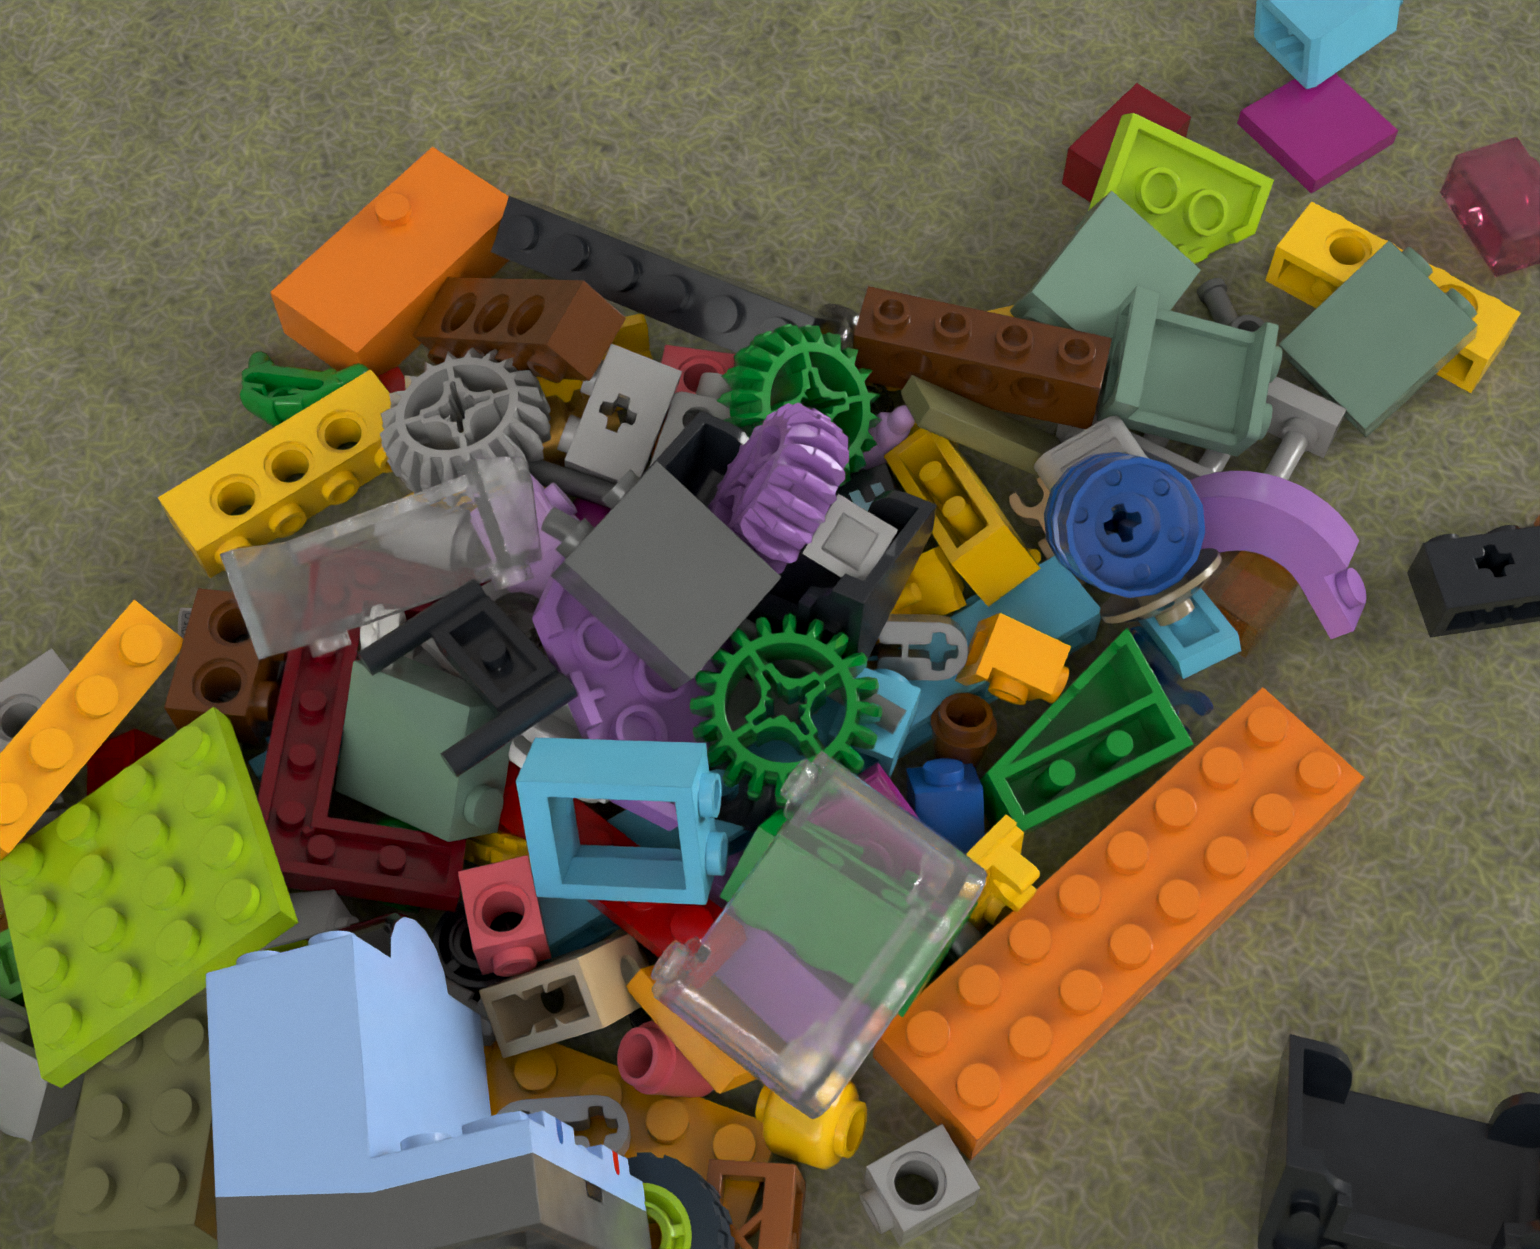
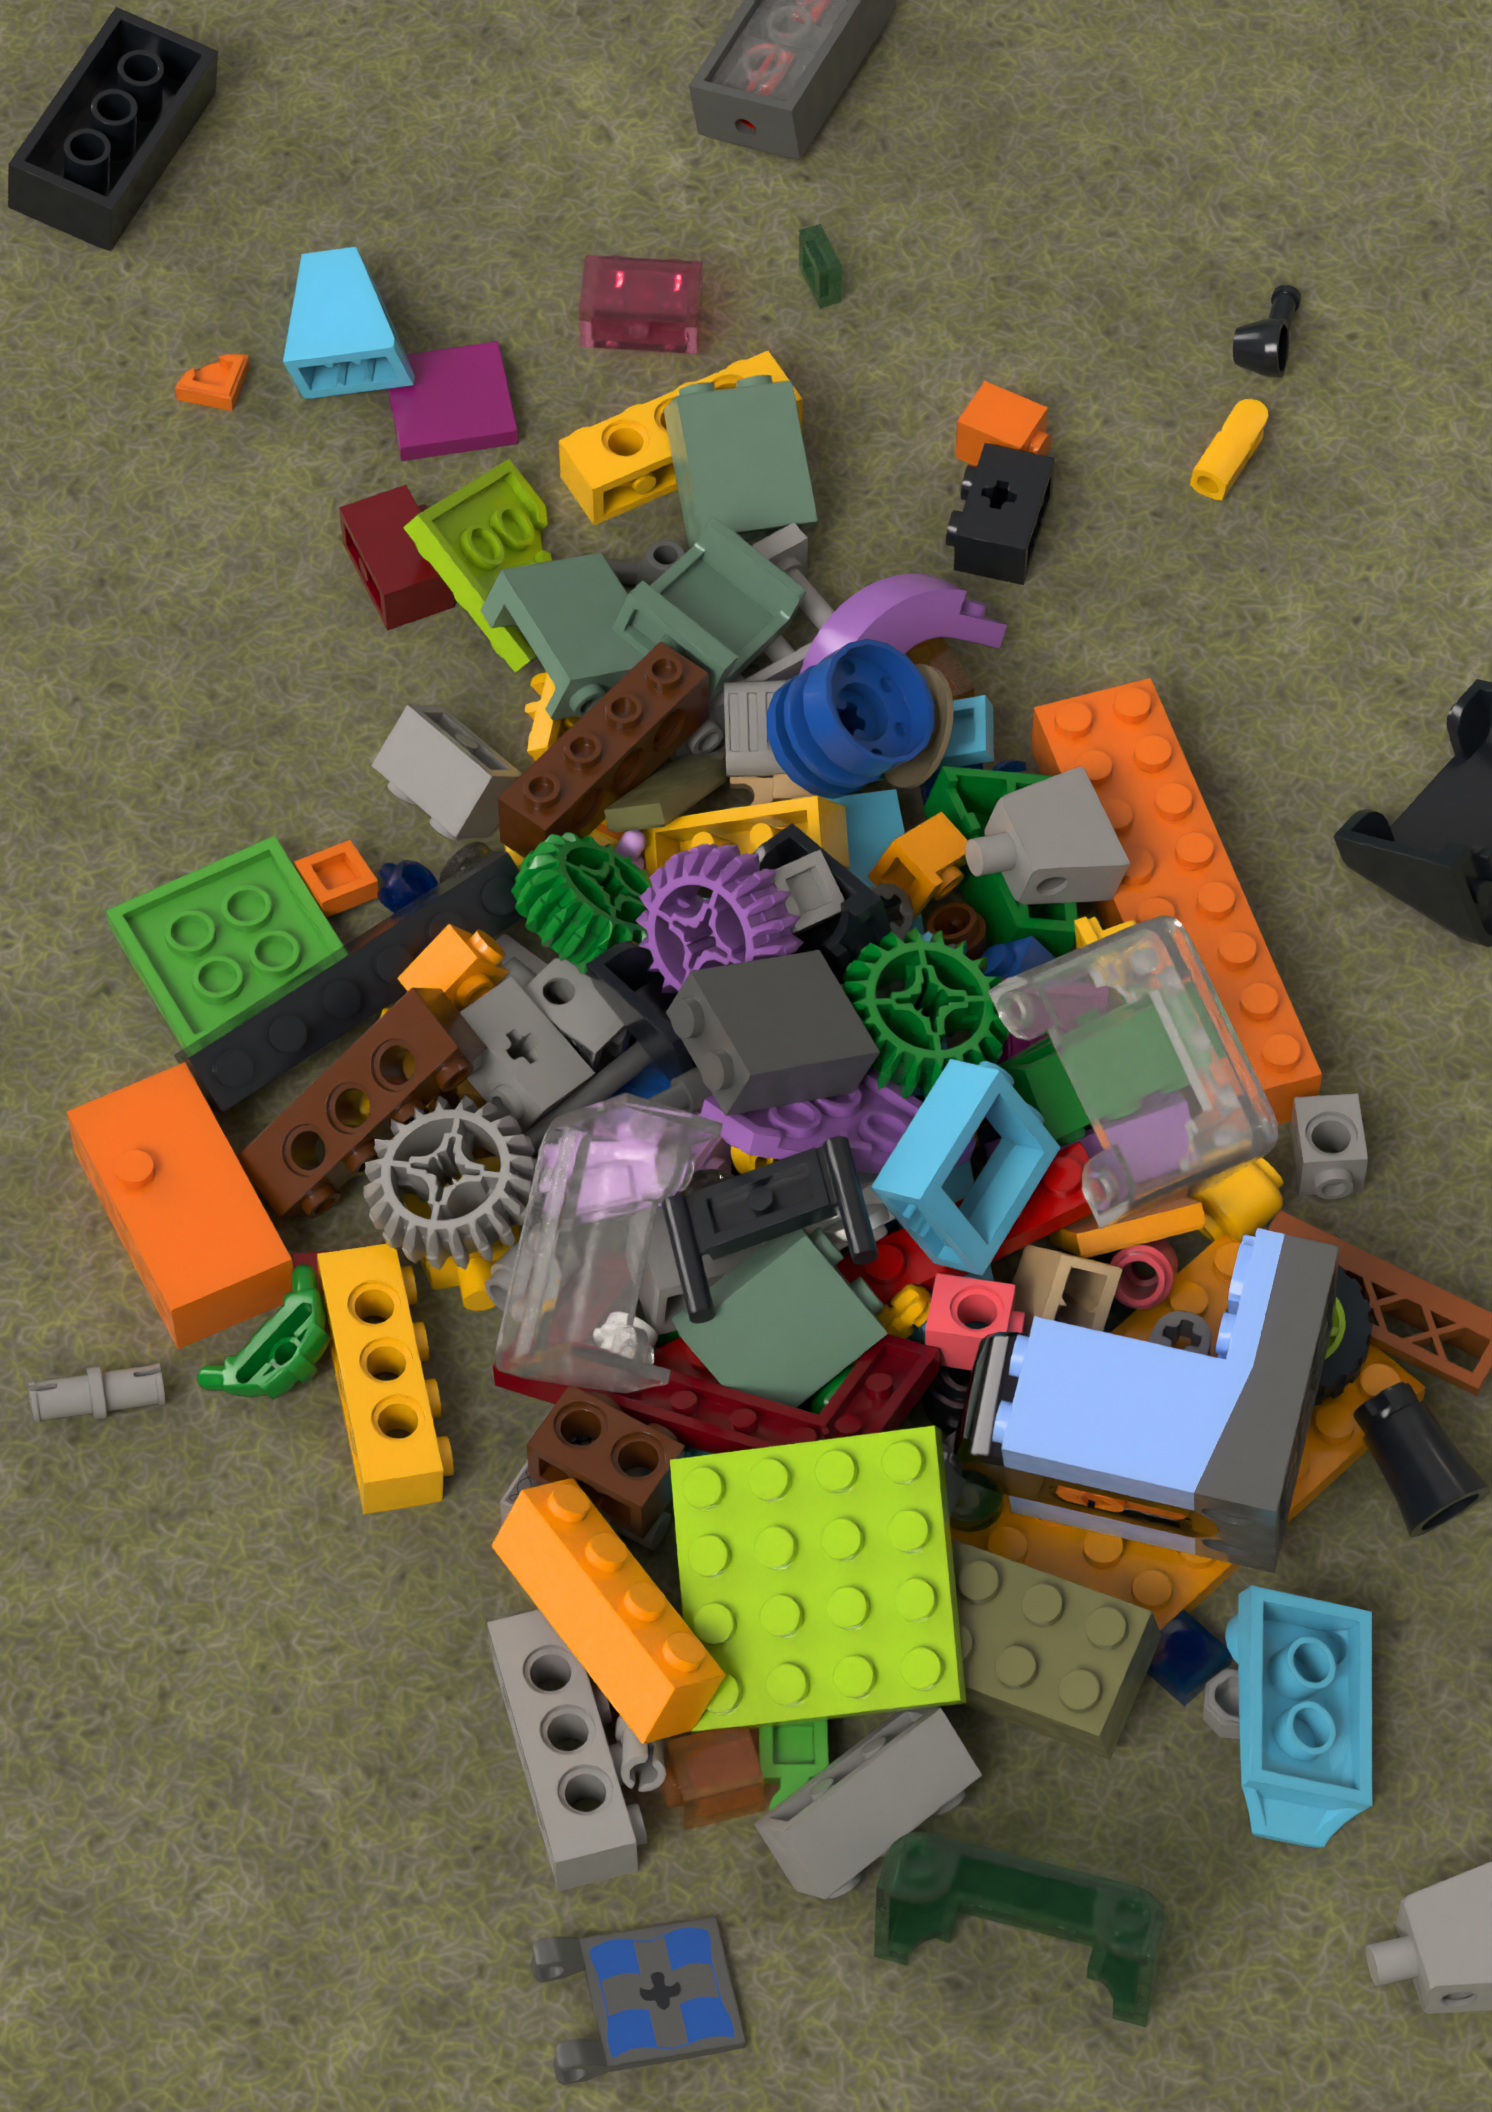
camera: 65 degrees left, 5 degrees down
(205, 291) = (96, 1393): none -> light grey pin
(680, 336) = (459, 964): none -> light orange brick
(682, 193) = (222, 937): none -> bright green plate
(780, 243) = (338, 878): none -> orange plate
(803, 282) = (404, 883): none -> clear blue plate
(929, 253) = (445, 771): none -> light grey brick
(1088, 755) = (1051, 843): none -> light grey torso

